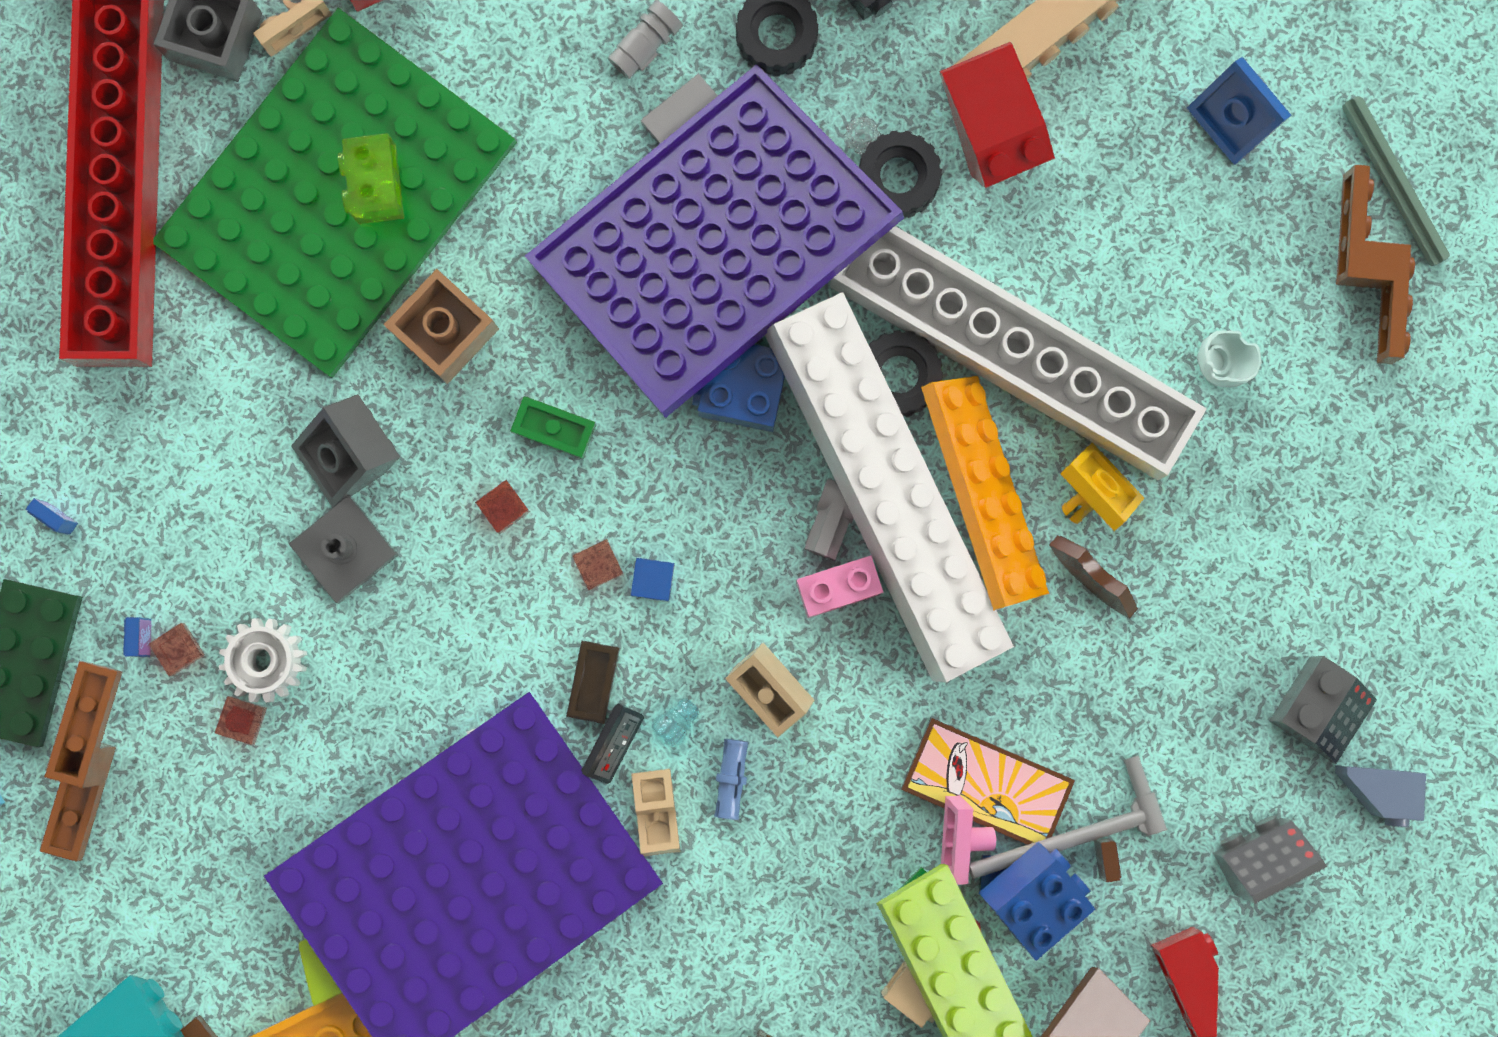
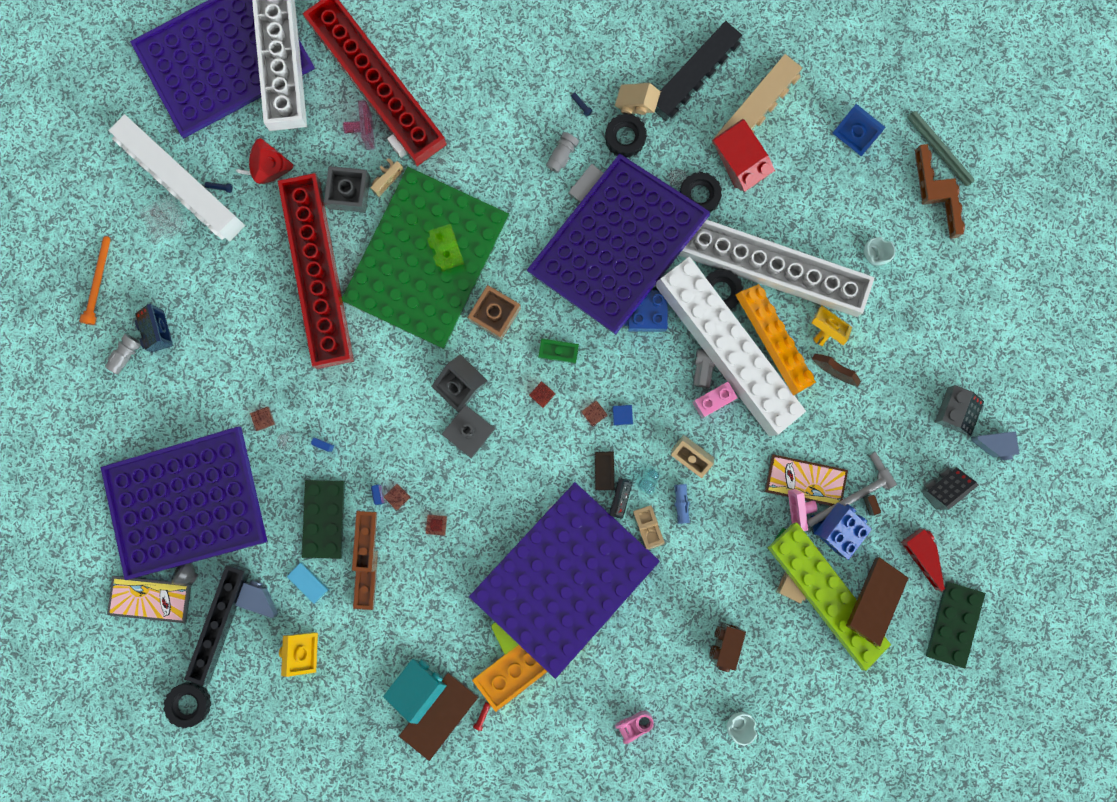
camera: 15 degrees left, 0 degrees up
(242, 654) = (434, 485): white gear -> none

